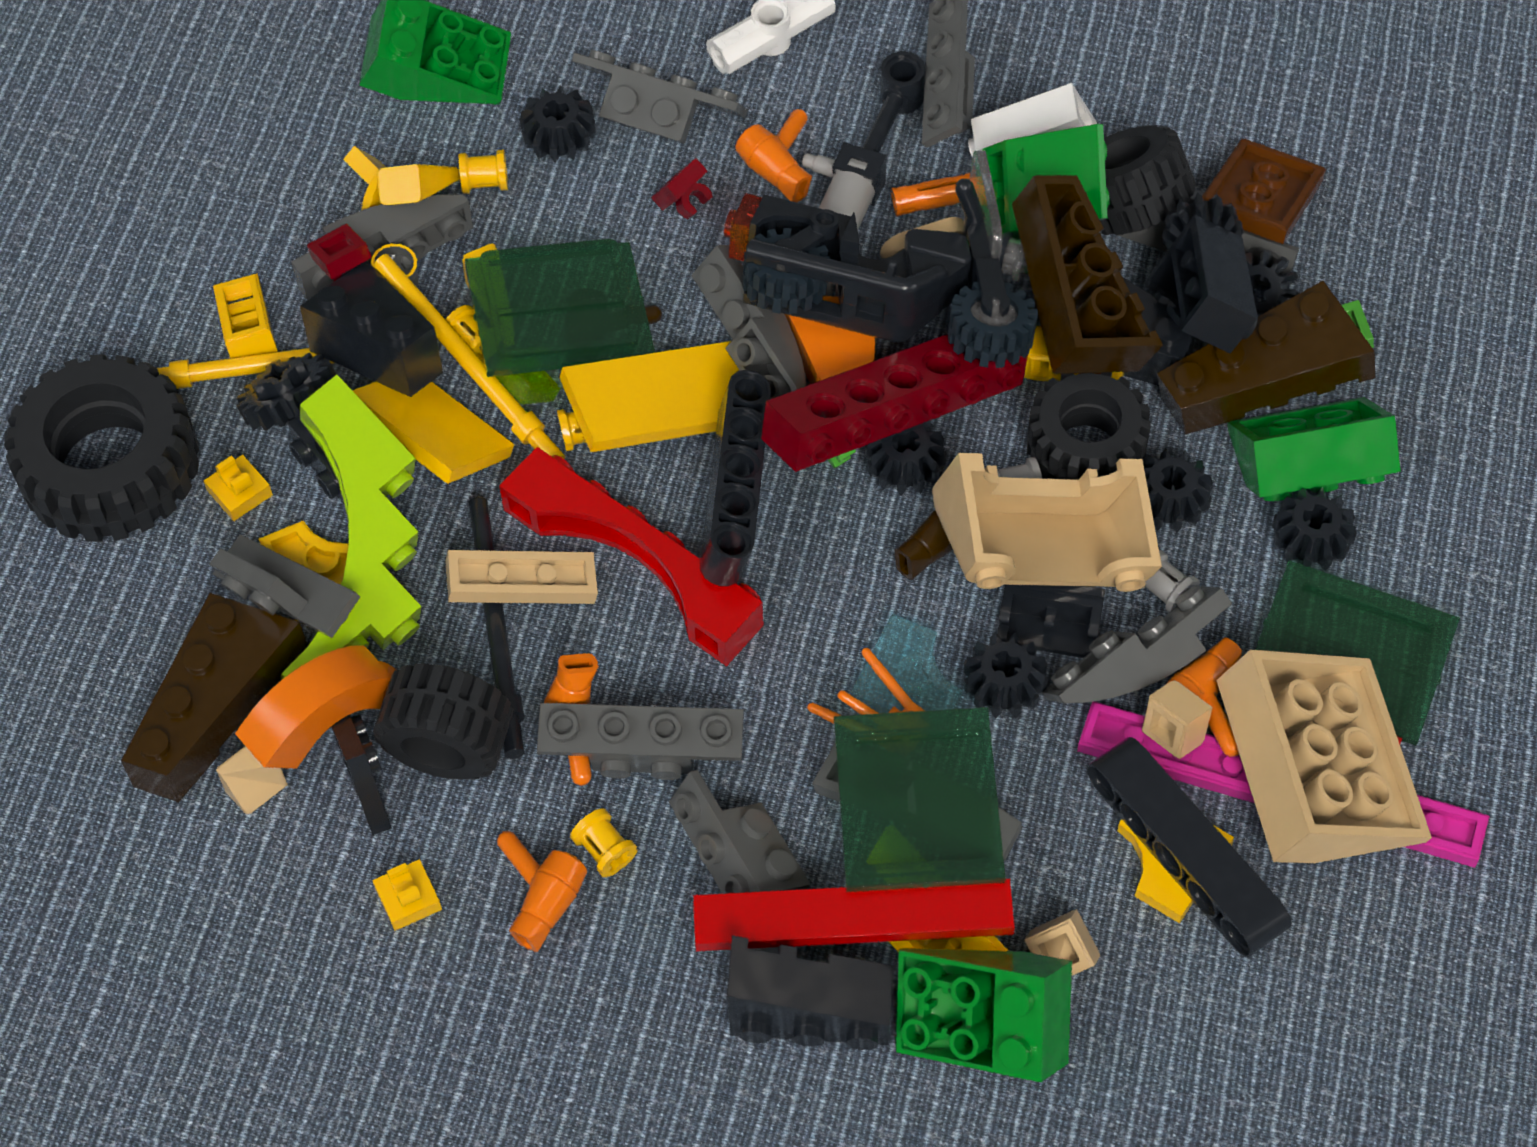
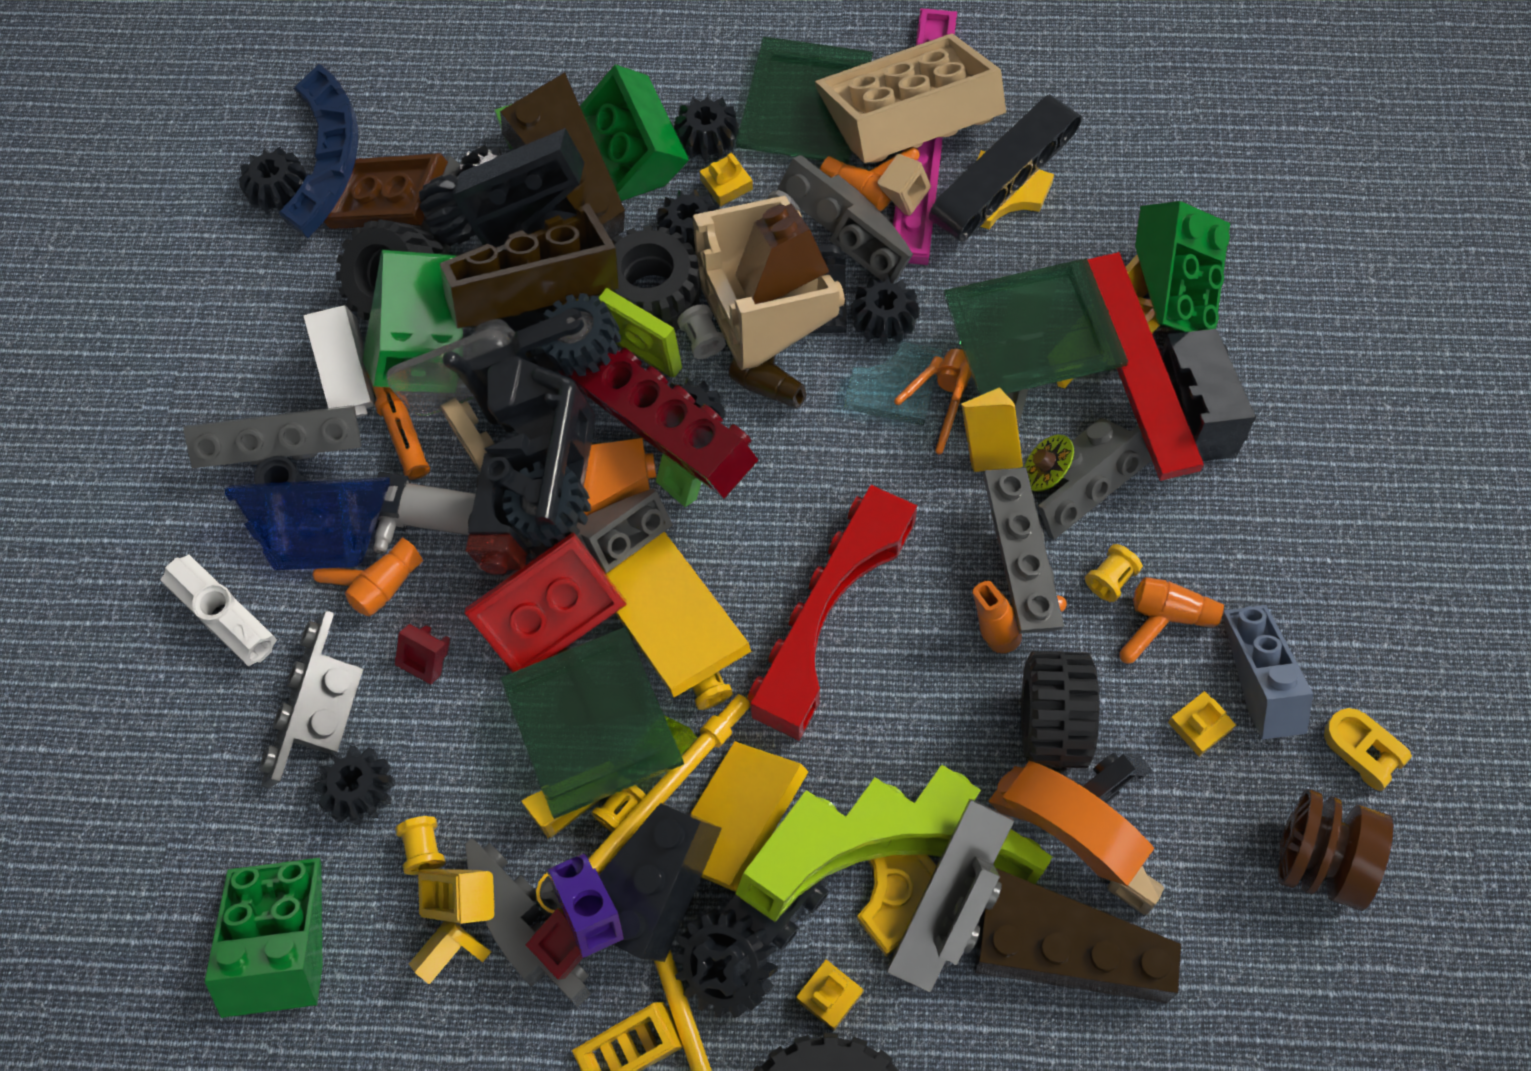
camera: 100 degrees left, 5 degrees up
(222, 947) = (1346, 852): none -> reddish brown wheel
(344, 1039) = (1352, 733): none -> yellow plate
(356, 254) = (585, 905): none -> dark purple leg
(443, 970) = (1268, 673): none -> sand blue slope
(497, 634) = (1005, 682): black bar -> none
(521, 577) = (884, 693): tan plate -> none
(690, 280) = (546, 605): none -> red tile
(735, 479) = (757, 521): black beam -> none
(757, 803) = (1049, 462): none -> piece
(801, 740) = (992, 432): none -> yellow slope
(843, 96) = (312, 520): none -> clear blue wing
(1004, 406) = (644, 334): none -> lime tile
(1060, 538) = (779, 256): none -> reddish brown slope
(1065, 939) = (1100, 240): tan slope -> none
(1238, 546) = (726, 179): none -> yellow tile
(1301, 93) = (271, 179): none -> black gear
(1341, 152) = (334, 151): none -> dark blue tile

